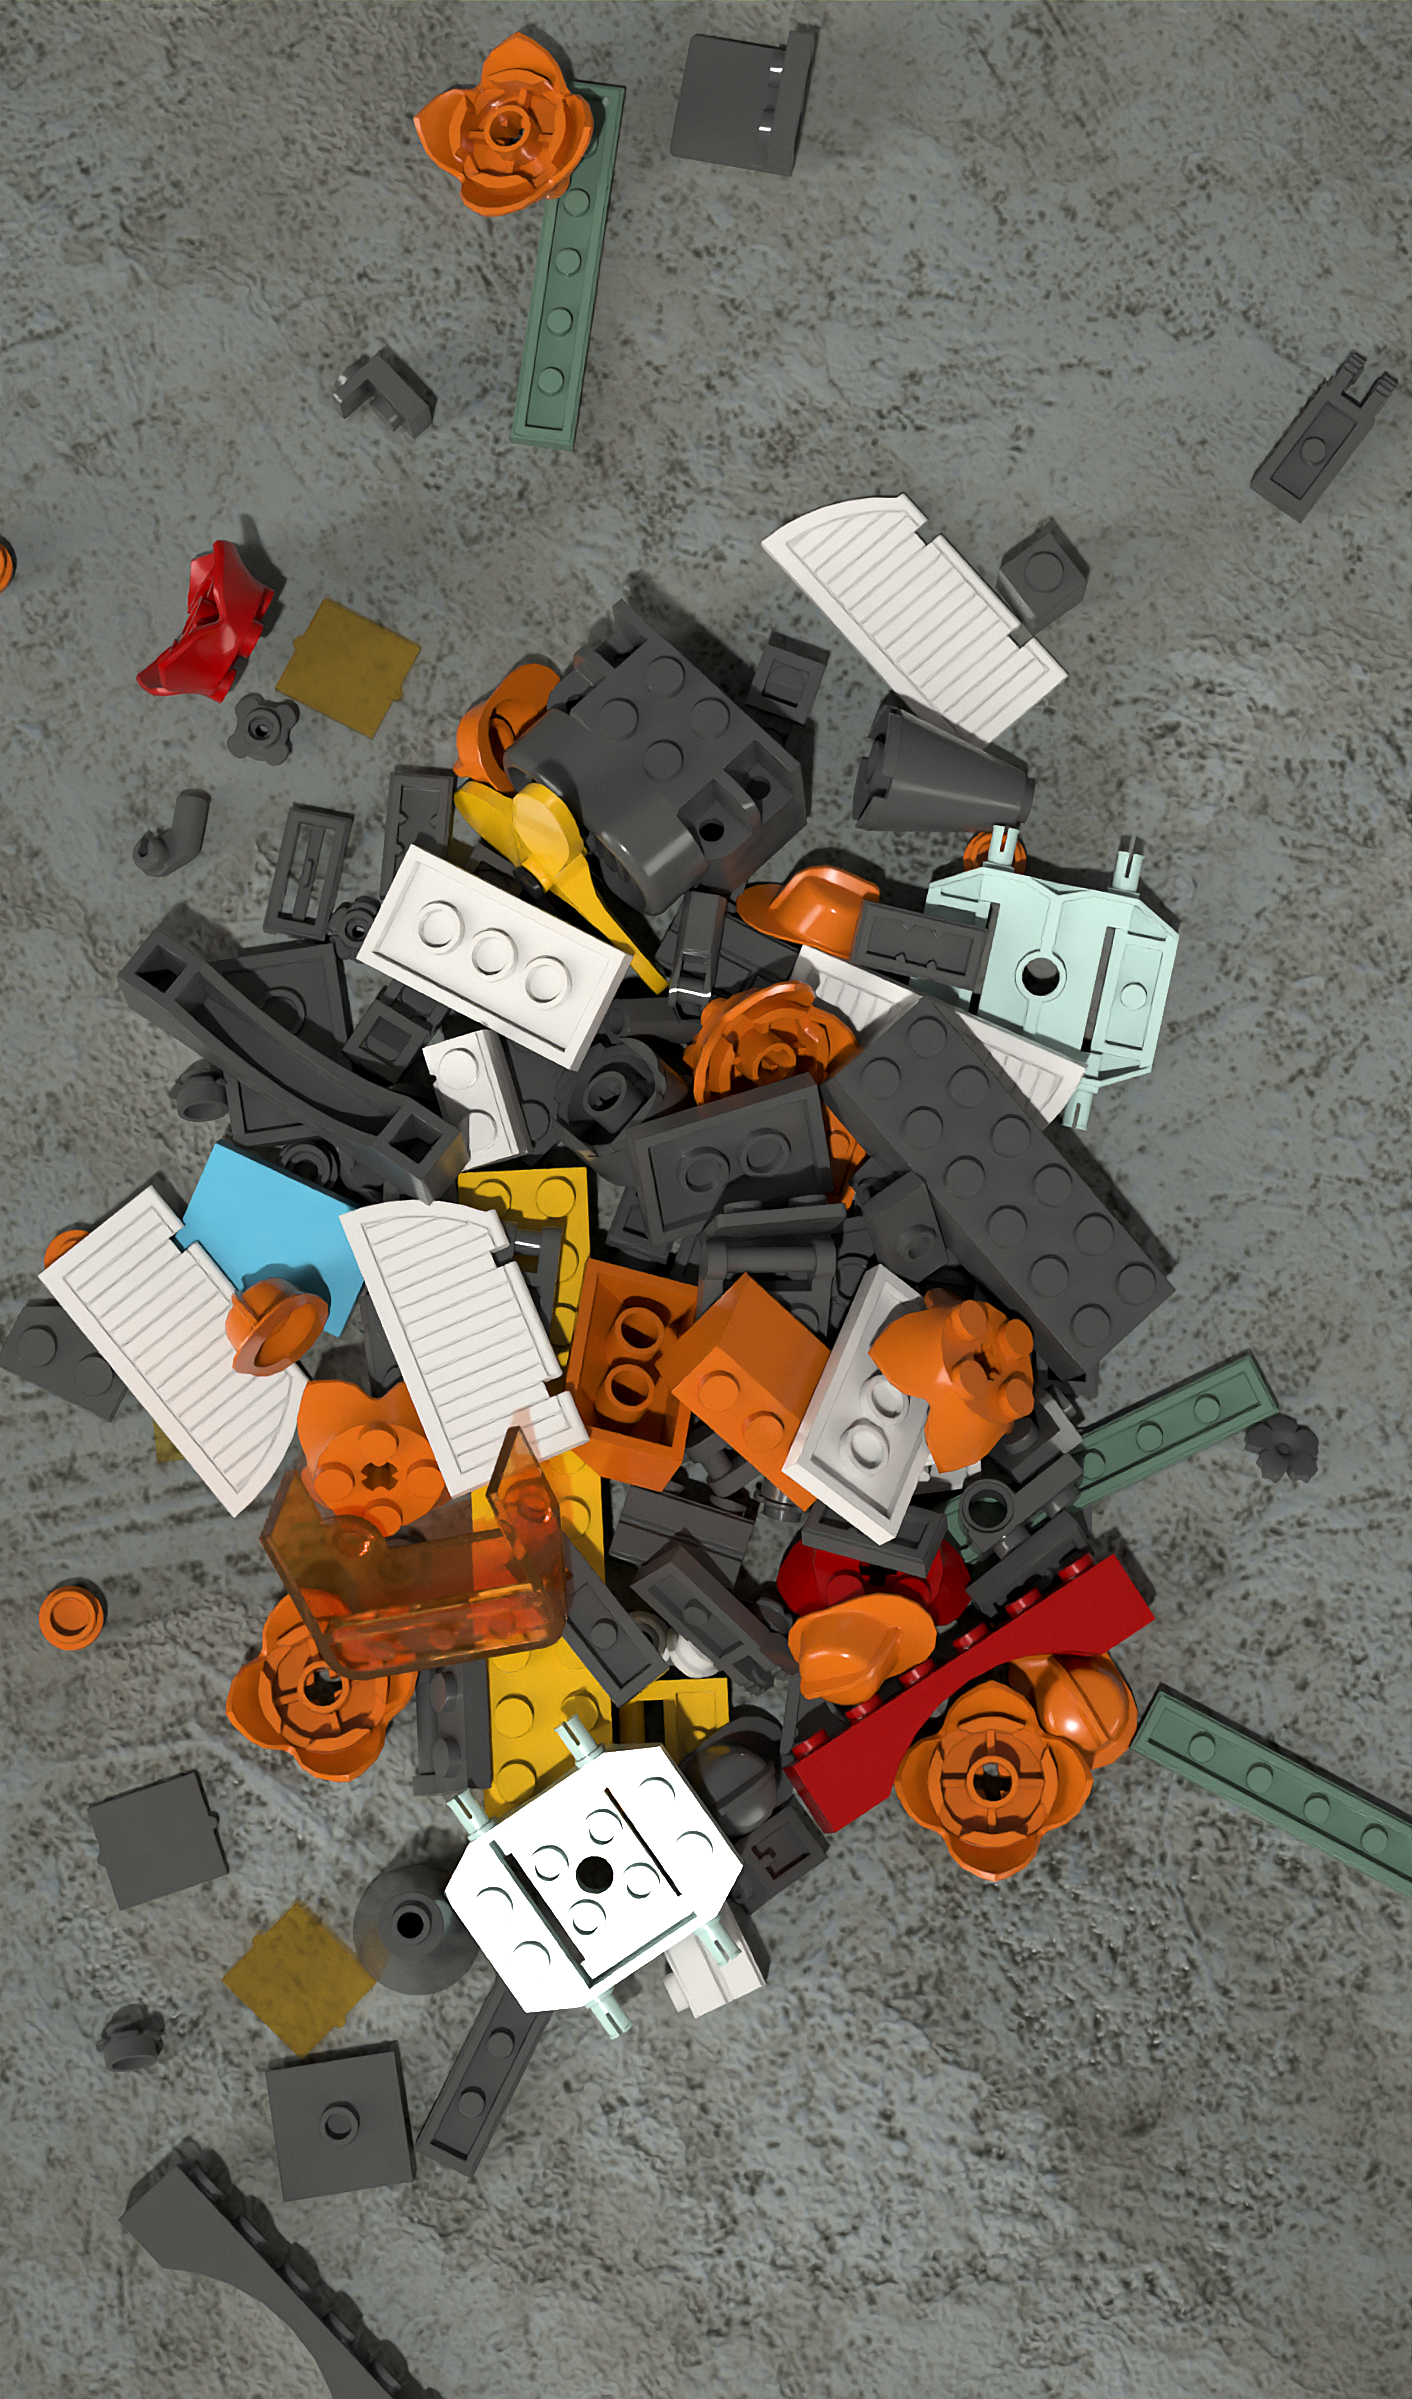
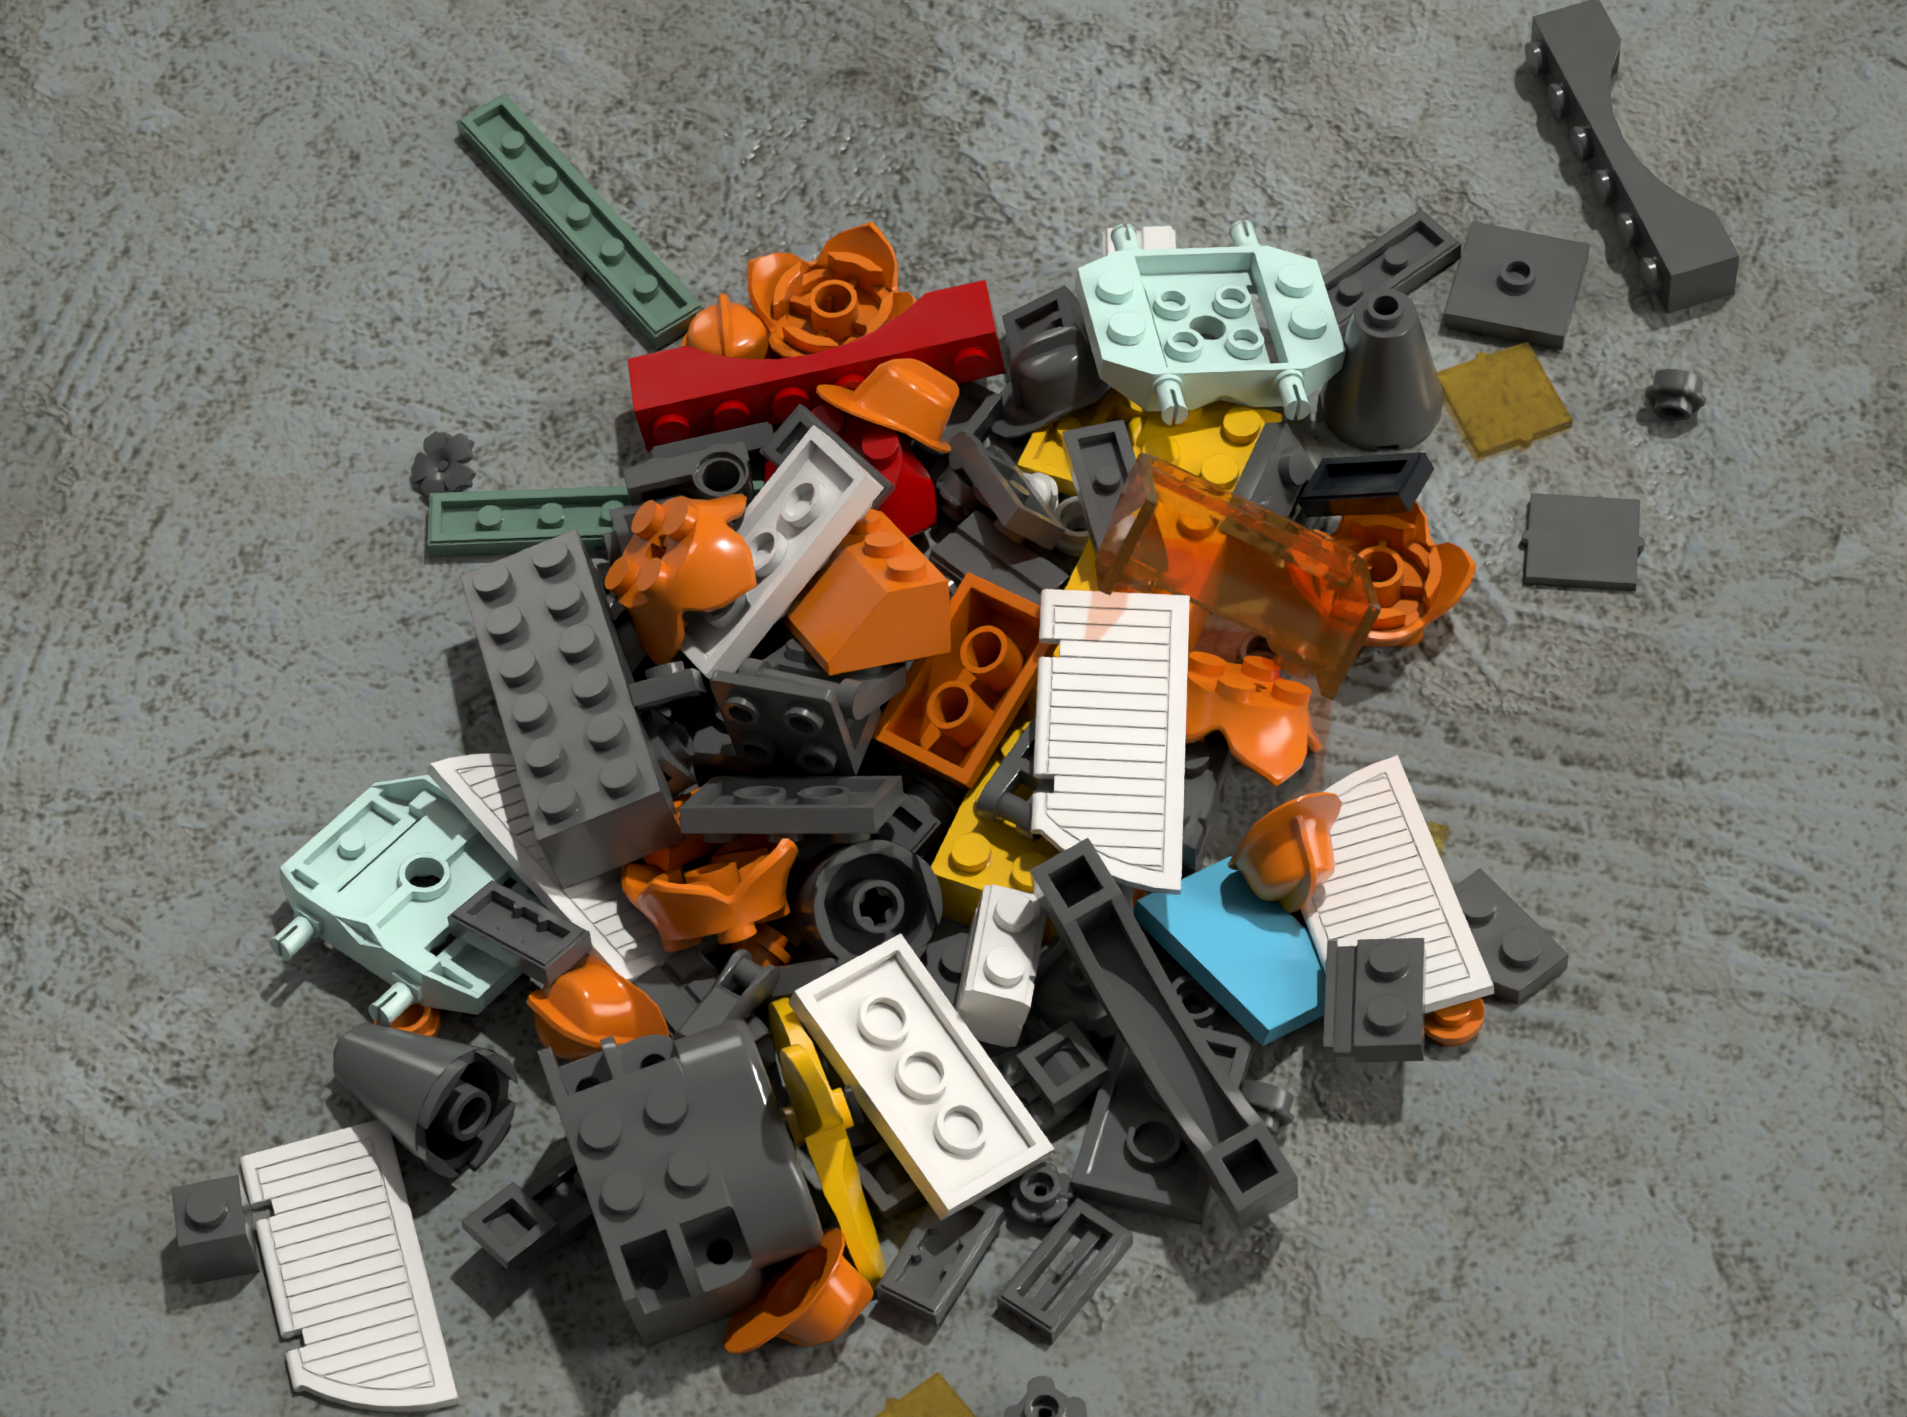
camera: 150 degrees left, 25 degrees down
(71, 1618) = (1585, 728): orange plate -> none
(134, 1213) = (1375, 1000): none -> dark grey plate
(176, 846) = (1181, 1346): dark grey arm -> none
(366, 1760) = (1365, 485): none -> black tile

